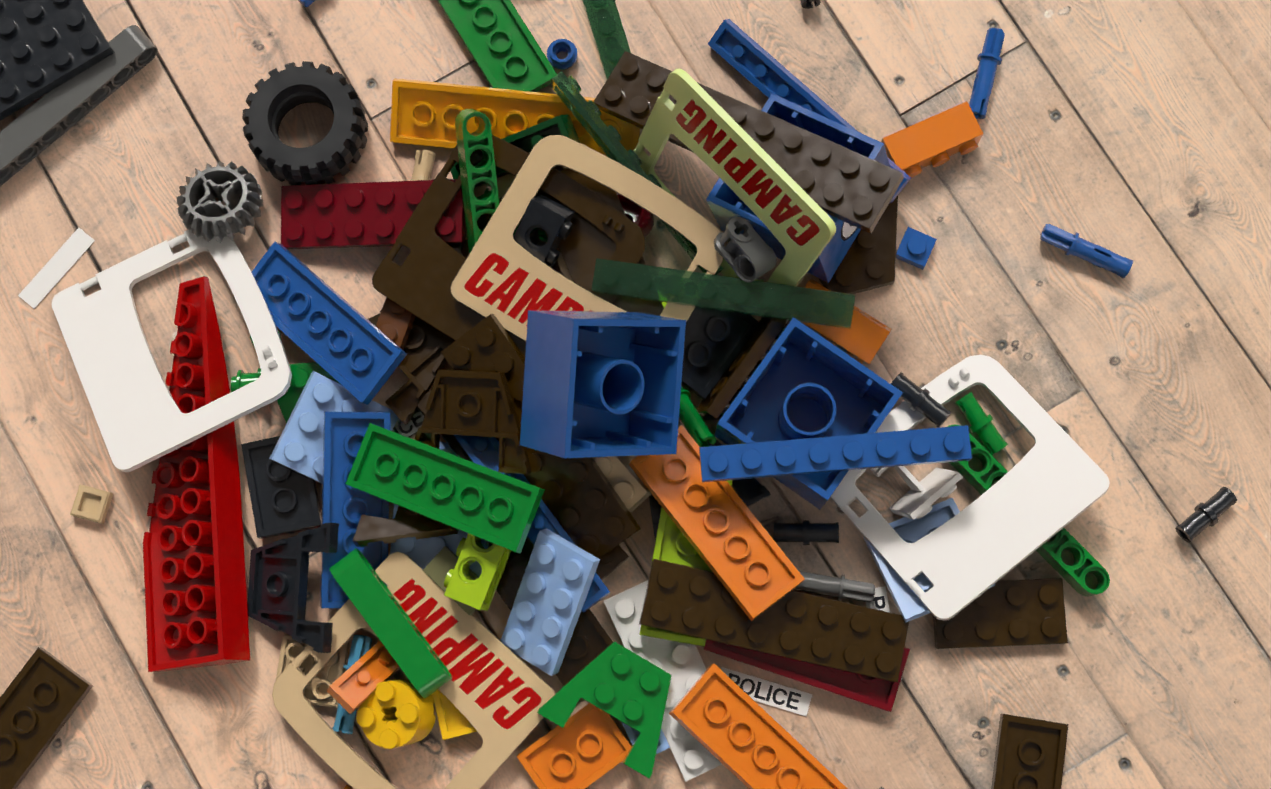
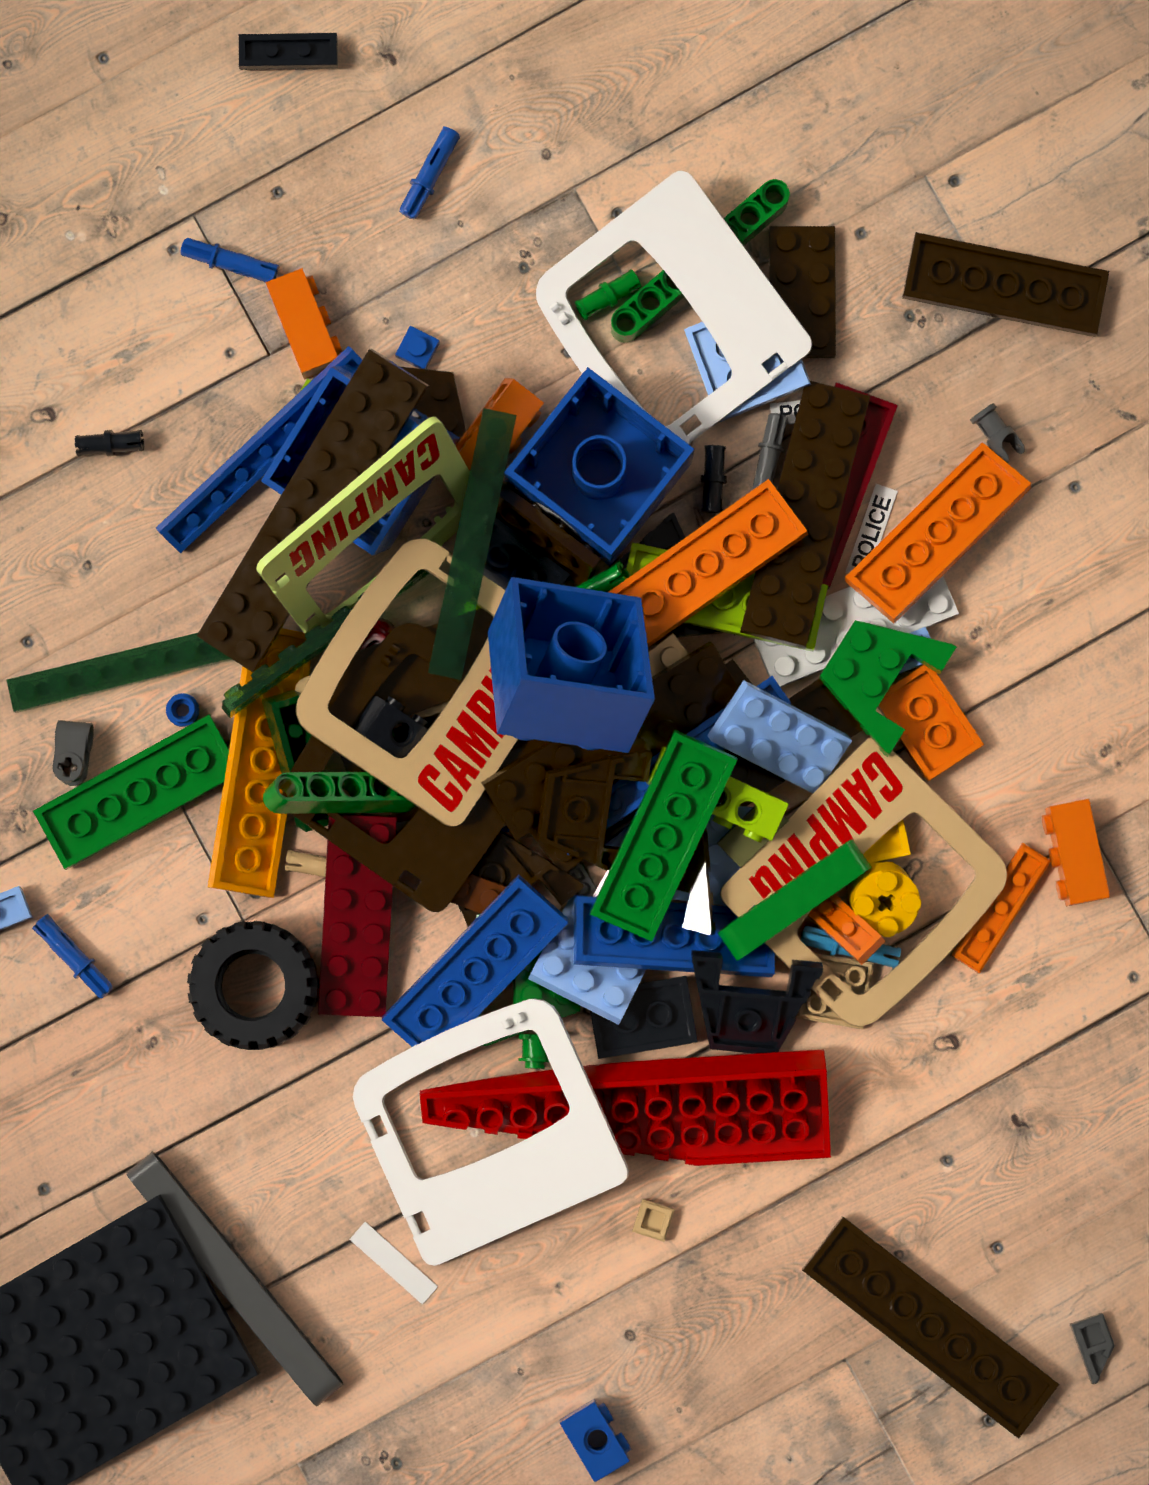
camera: 90 degrees left, 5 degrees up
(211, 218) = (324, 1068): dark grey gear -> none
(745, 252) = (433, 515): dark grey piece -> none
(835, 453) = (648, 438): blue plate -> none
(918, 500) = (680, 356): white plate -> none
(921, 400) = (582, 354): black pin -> none
(1192, 115) = (288, 51): none -> black plate
(1206, 514) = (710, 77): black pin -> none

